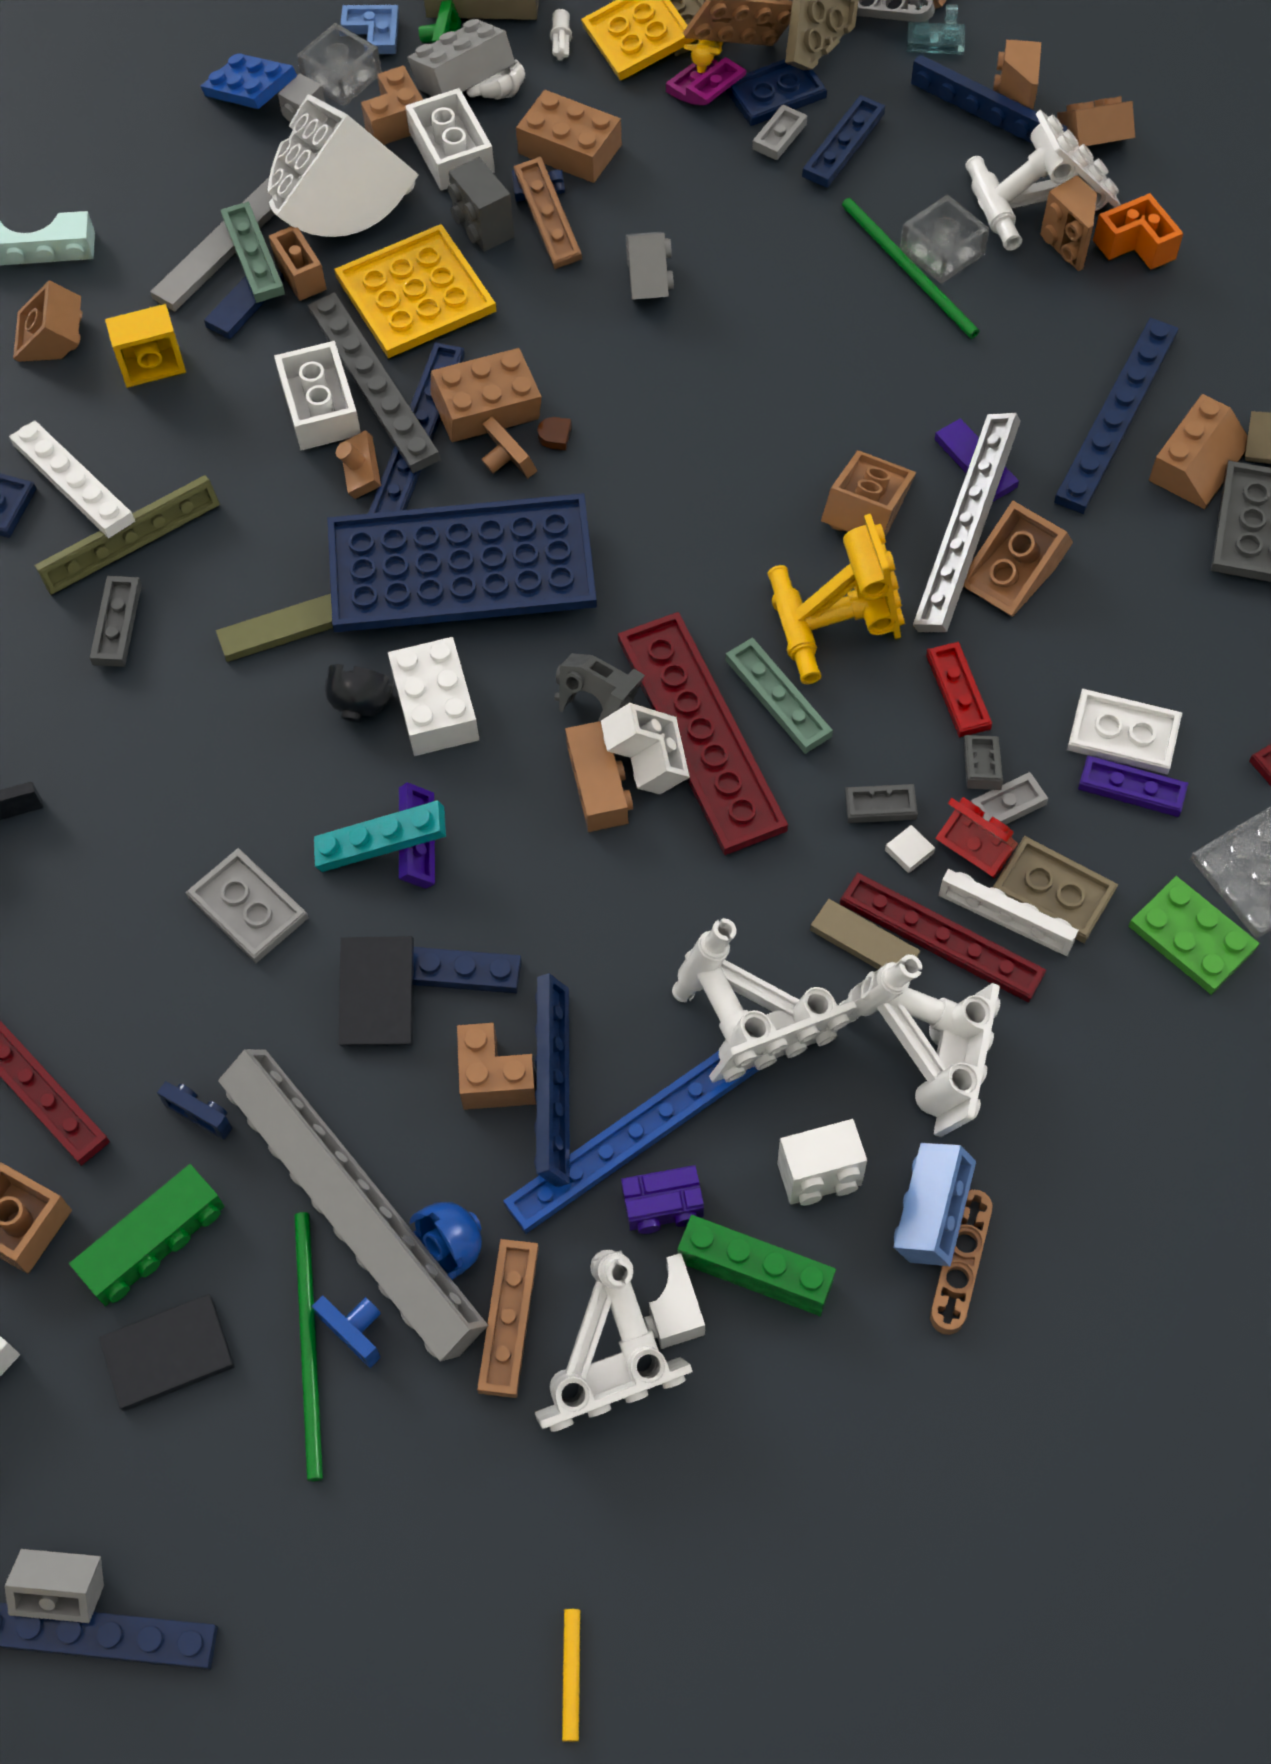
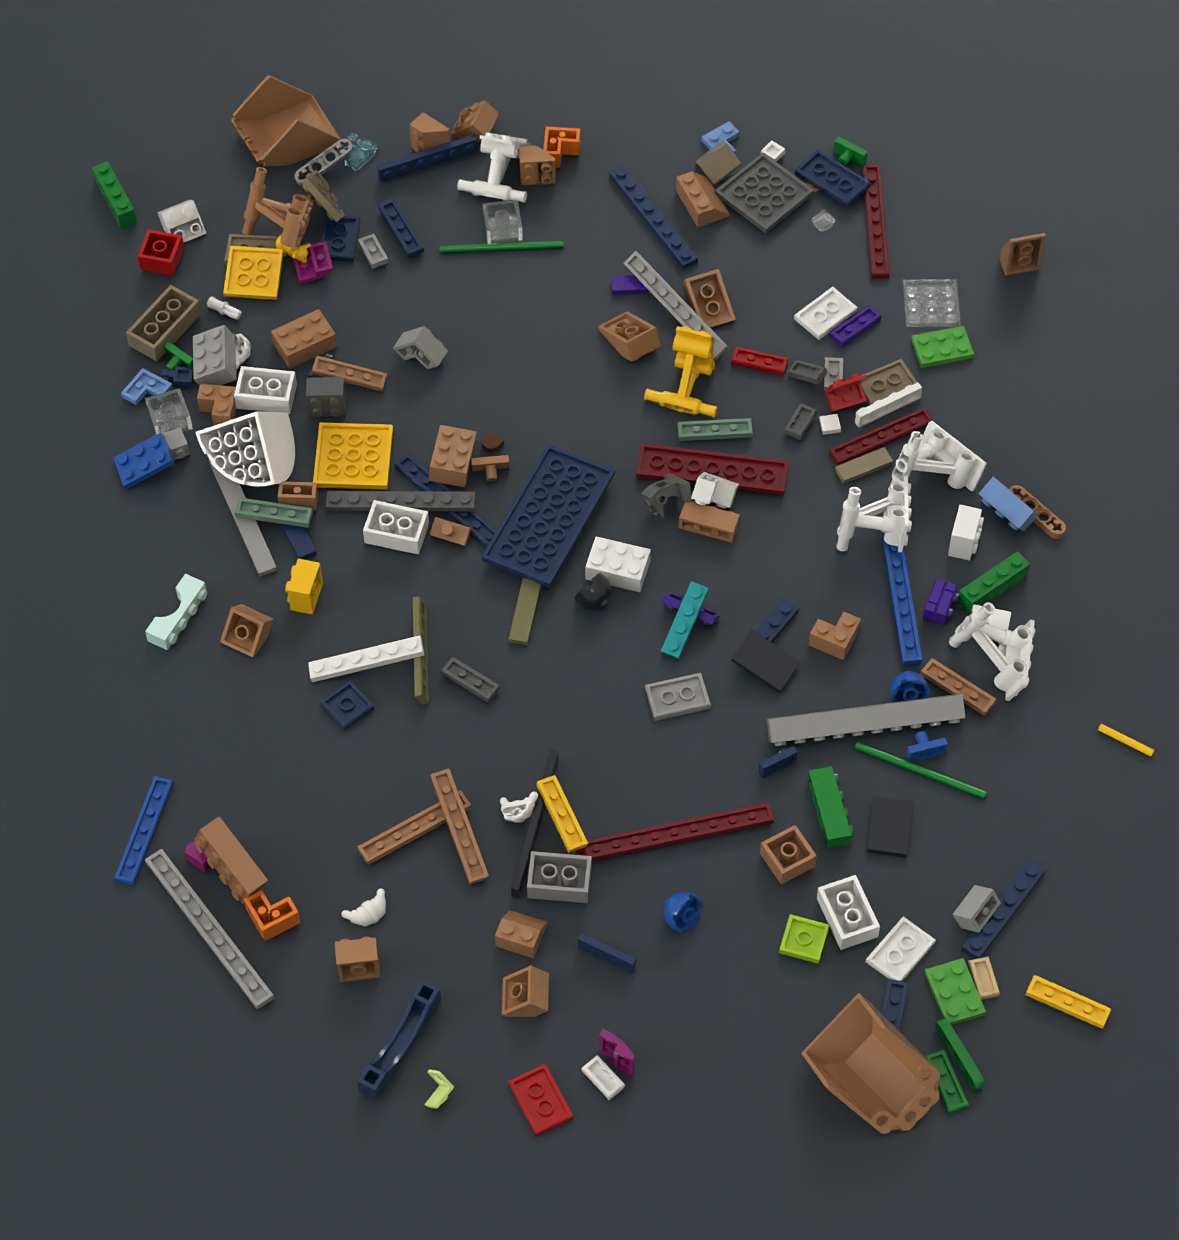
camera: 60 degrees left, 5 degrees down
(409, 41) = (181, 376): none -> dark blue plate
(552, 1089) = (865, 616): dark blue plate -> none

